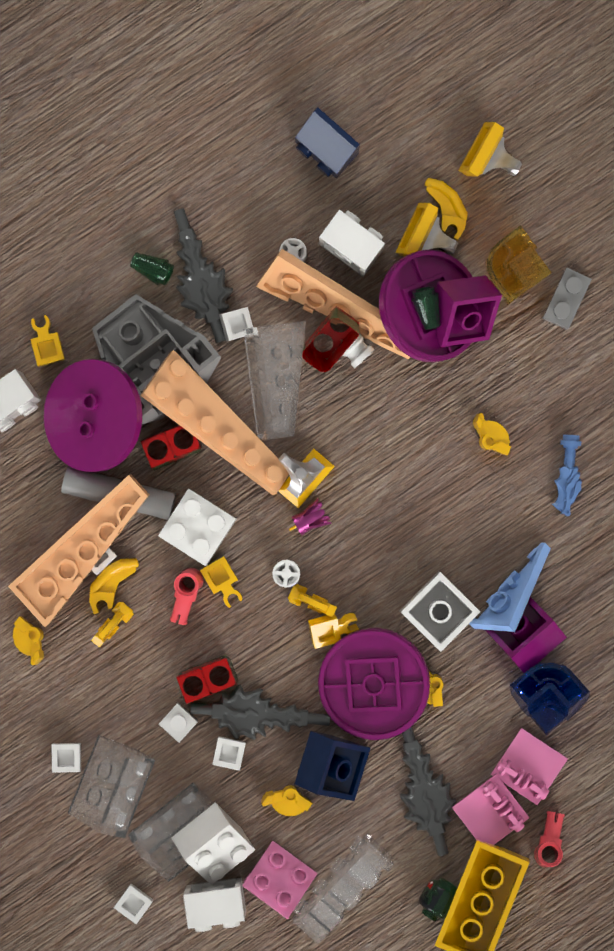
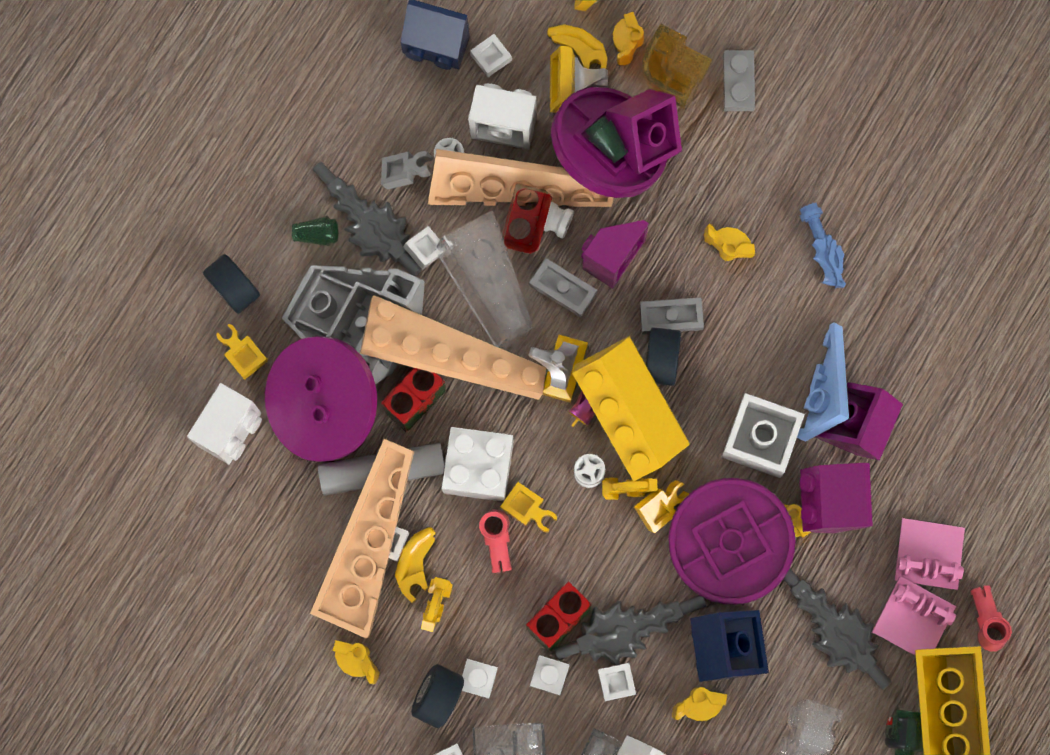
camera: 20 degrees left, 10 degrees down
(61, 283) = (231, 283): none -> black wheel
(80, 700) = (437, 696): none -> black wheel
(120, 699) = (479, 678): none -> white plate
(247, 246) = (400, 169): none -> light grey plate
(335, 410) = (563, 287): none -> light grey plate
(341, 541) = (630, 408): none -> yellow slope
(367, 180) = (491, 55): none -> white plate
(389, 401) = (612, 250): none -> magenta slope
(389, 508) = (663, 355): none -> black wheel
(414, 475) = (672, 314): none -> light grey plate
(473, 690) = (836, 497): none -> magenta slope
(490, 218) = (627, 38): none -> yellow piece
(549, 694) = (914, 468): clear blue brick -> none

